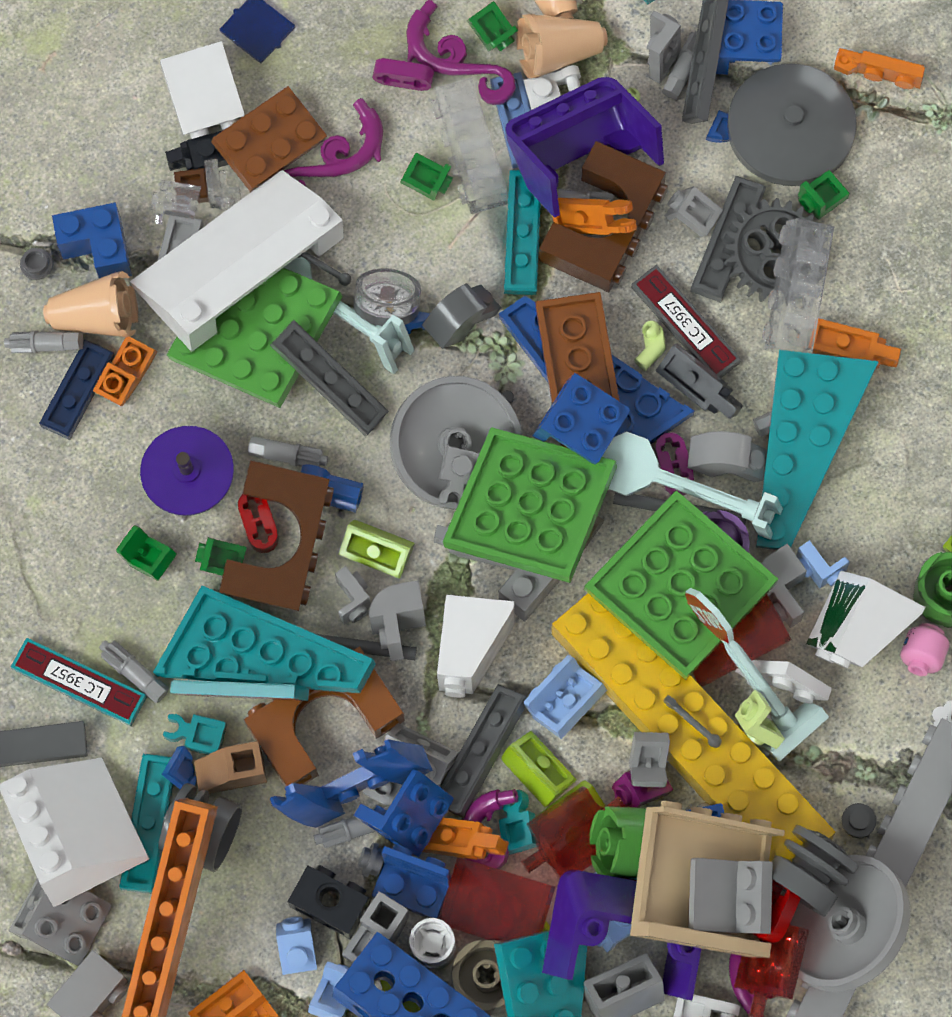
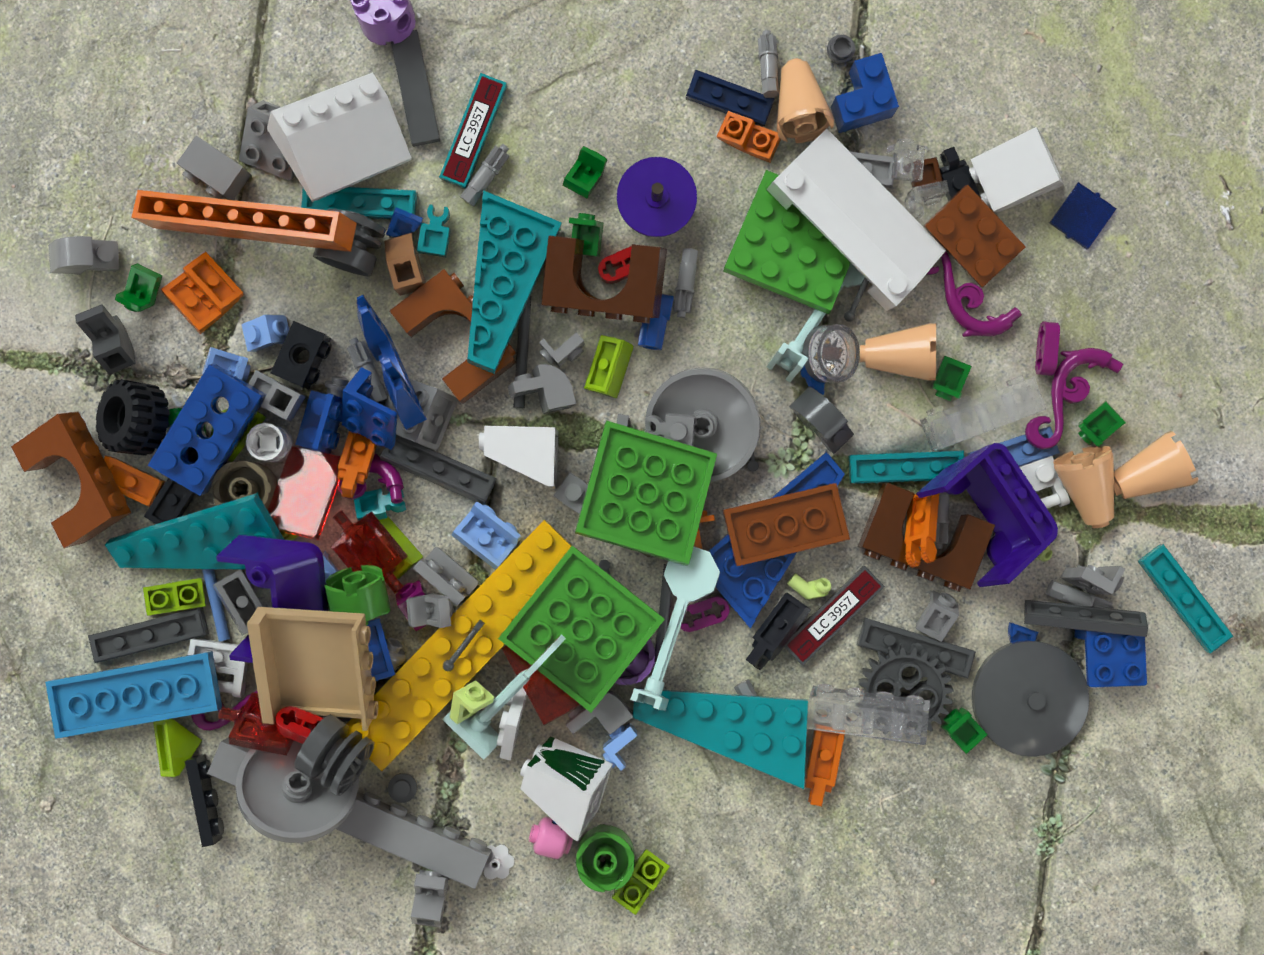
camera: 80 degrees right, 15 degrees up
(240, 690) = (466, 263): tile -> none
(329, 378) = (752, 309): dark grey tile -> none
(393, 219) = (903, 352): none -> light nougat cone
(537, 768) = (429, 518): lime slope -> none
(583, 419) = (724, 532): blue bracket -> none
(608, 748) = (447, 576): none -> light grey bracket
(727, 453) = (710, 659): light grey brick -> none
(730, 896) = (304, 690): light grey bracket -> none
(879, 67) = (1092, 773): orange hinge -> none

